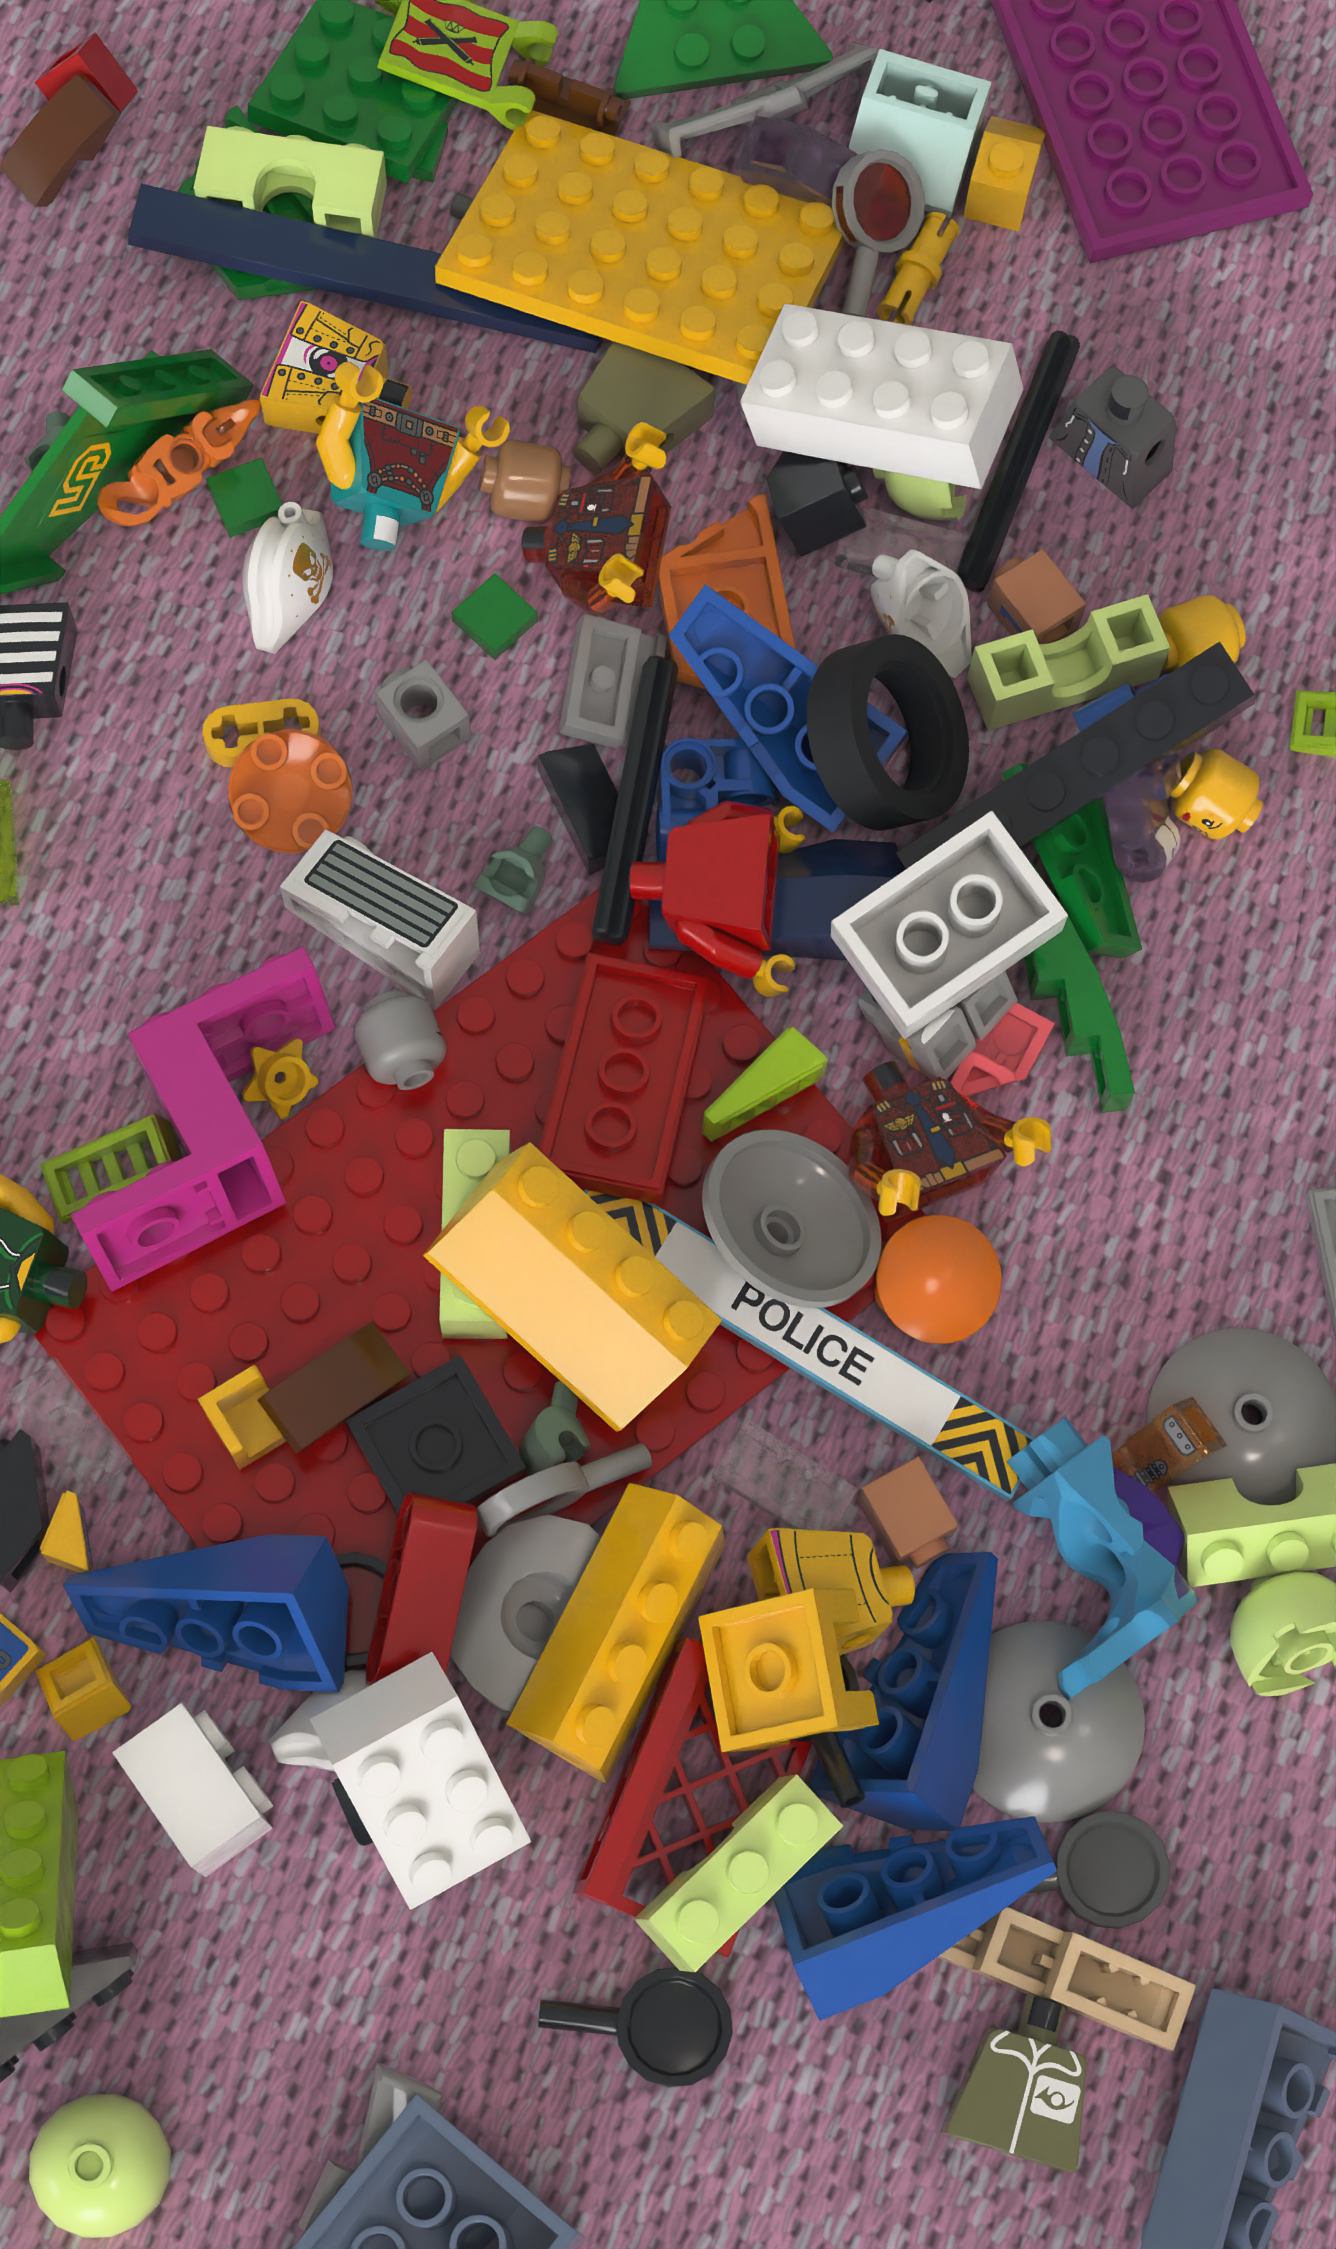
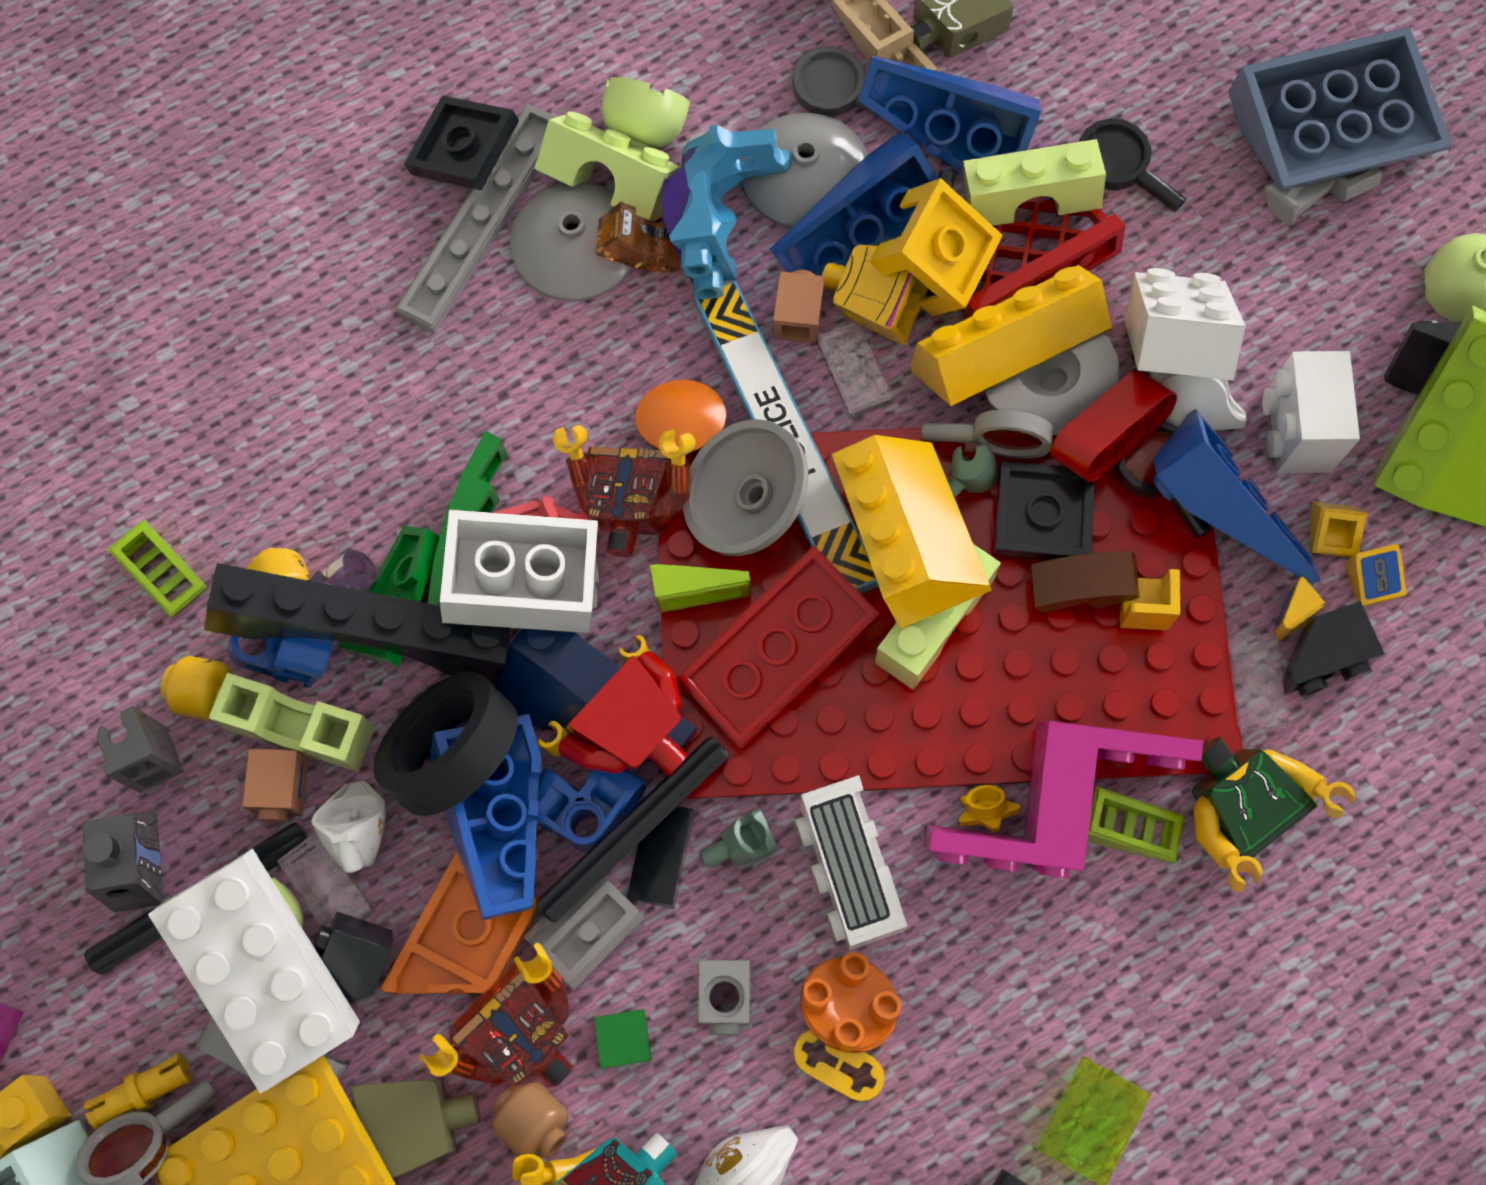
camera: 135 degrees left, 0 degrees up
(400, 1039) = (898, 769): light grey head -> none
(1186, 535) = (143, 756): none -> dark grey hinge

